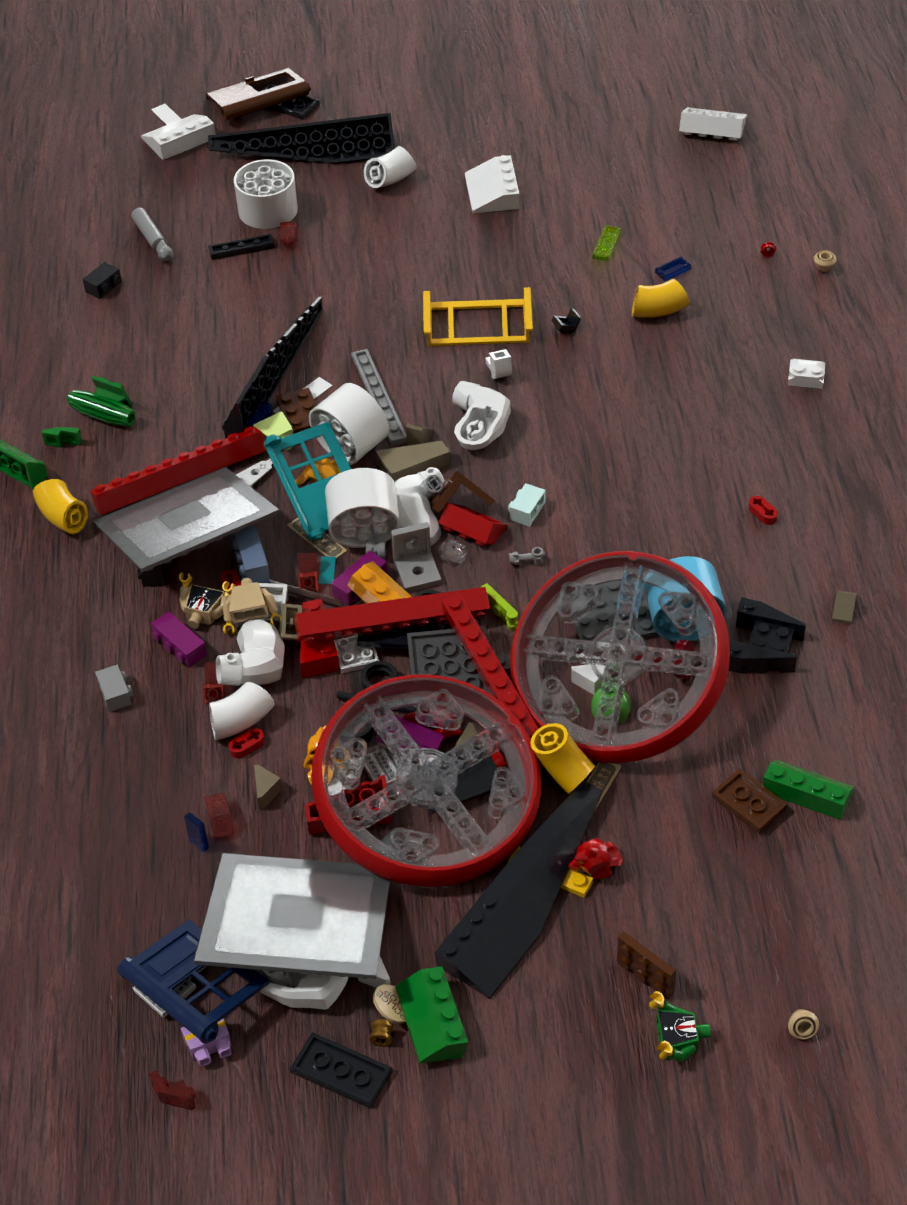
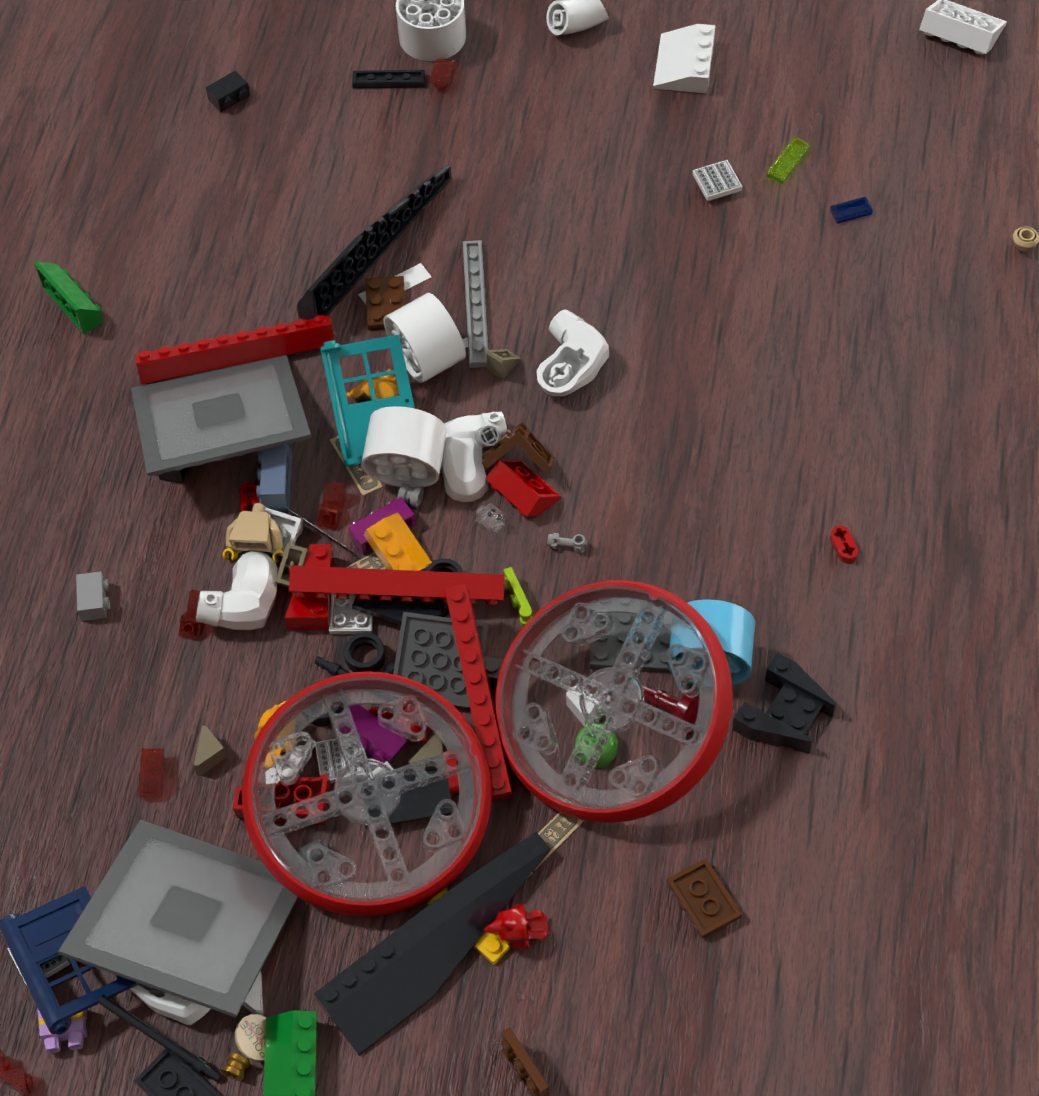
camera: 15 degrees right, 10 degrees up
(58, 436) = (125, 277): green slope -> none
(60, 506) = (100, 366): yellow brick -> none
(107, 404) = (183, 249): green plate -> none
(152, 234) = (297, 43): light grey piece -> none
(178, 639) = (173, 554): magenta brick -> none
(196, 832) = (121, 789): clear blue tile -> none
(202, 603) = (208, 516): torso -> none
(239, 710) = (206, 658): white brick -> none
(246, 743) = (206, 694): red beam -> none
(260, 468) = (304, 375): white piece -> none
(263, 413) = (340, 304): clear blue tile -> none
(275, 425) = (350, 323): yellowish green torso -> none
(327, 570) = (354, 505): teal sticker -> none
(345, 1038) = (198, 1064): none -> black bar
(413, 459) = (484, 394): dark tan slope -> none
(414, 557) = (446, 511): light grey bracket -> none
(428, 306) = (563, 200): yellow piece -> none
(499, 364) = (615, 294): white brick -> none
(527, 504) = (588, 477): light aqua brick -> none
(553, 267) = (717, 180): none -> tile
(561, 756) = (515, 801): yellow brick -> none
(568, 322) = (708, 255): black bracket -> none
(659, 300) = (818, 251): yellow brick -> none
(768, 252) = (967, 209): red plate -> none
(806, 373) = (954, 380): white slope -> none
(808, 789) = (772, 899): green slope -> none
(844, 607) = (891, 686): dark tan slope -> none

